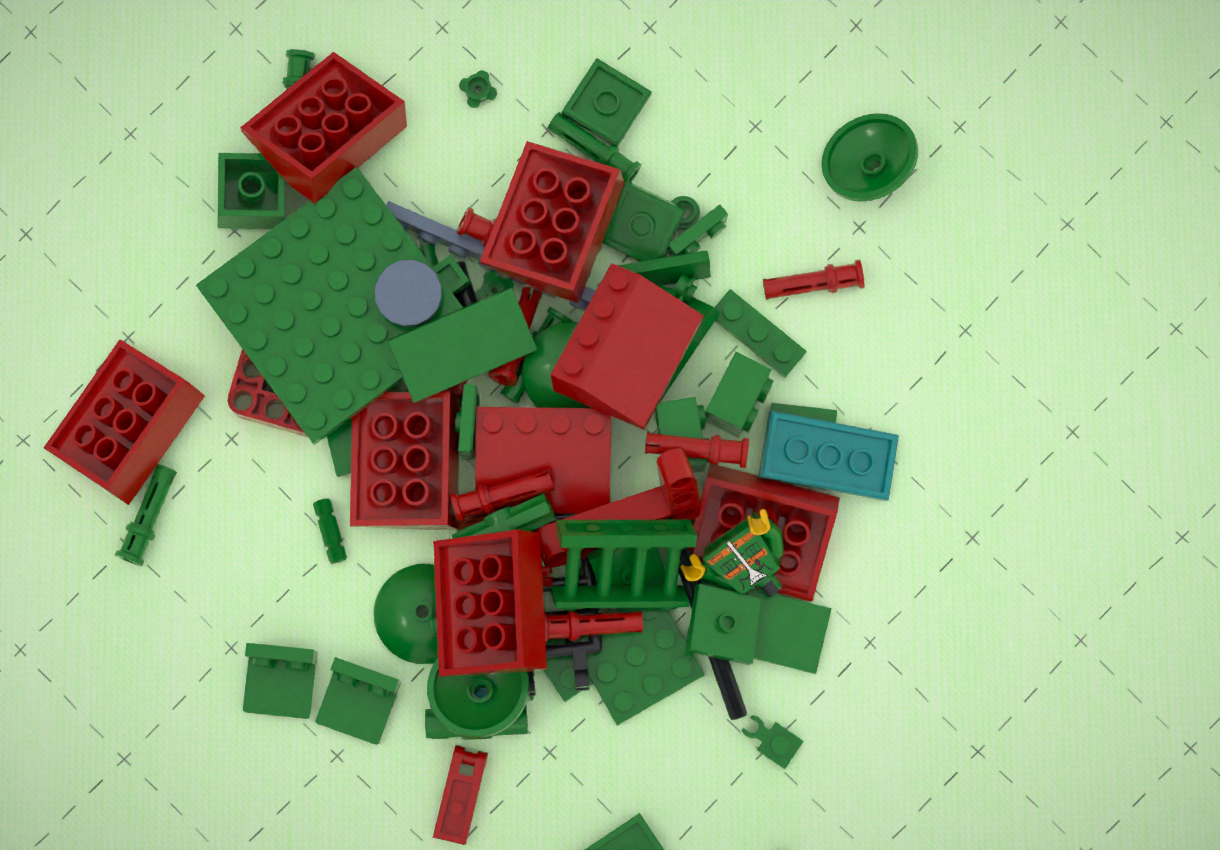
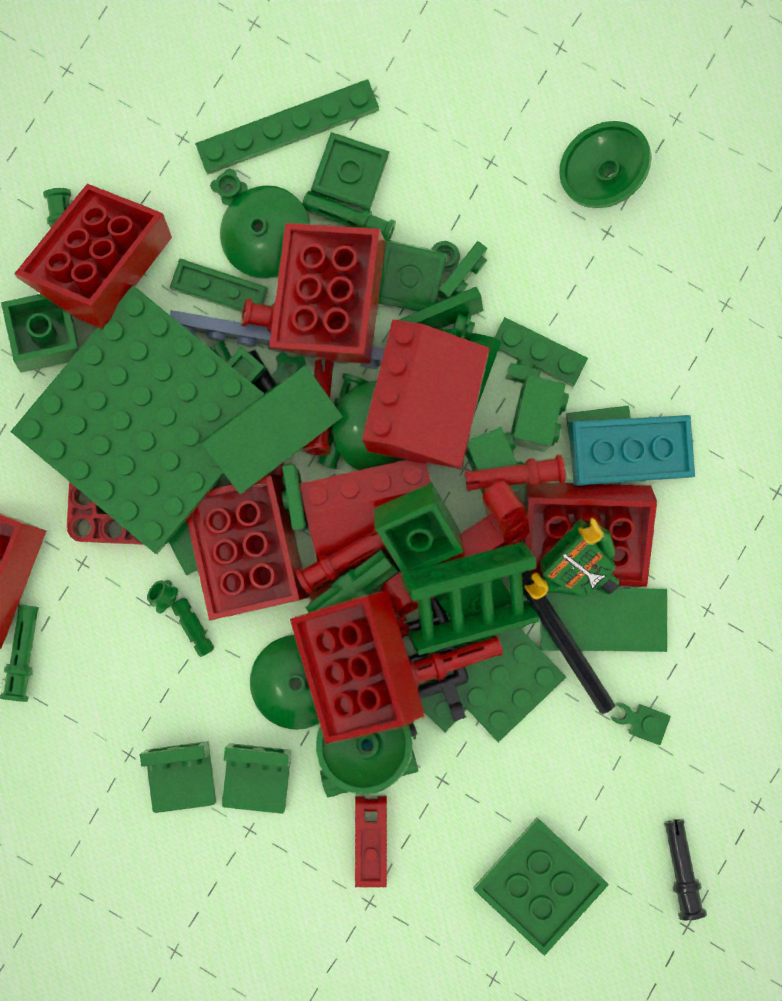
camera: 15 degrees left, 5 degrees up
(307, 490) = (162, 595): none -> green plate
(408, 293) = (209, 393): sand blue tile -> none
(439, 187) = (215, 286): none -> green tile
(493, 163) = (259, 252): none -> green dish
(553, 41) = (287, 126): none -> green plate
(586, 480) = (418, 529): none -> green brick
(723, 624) = (575, 629): green plate -> none
(728, 347) = (520, 370): none -> green plate
(829, 279) = (593, 286): red pin -> none

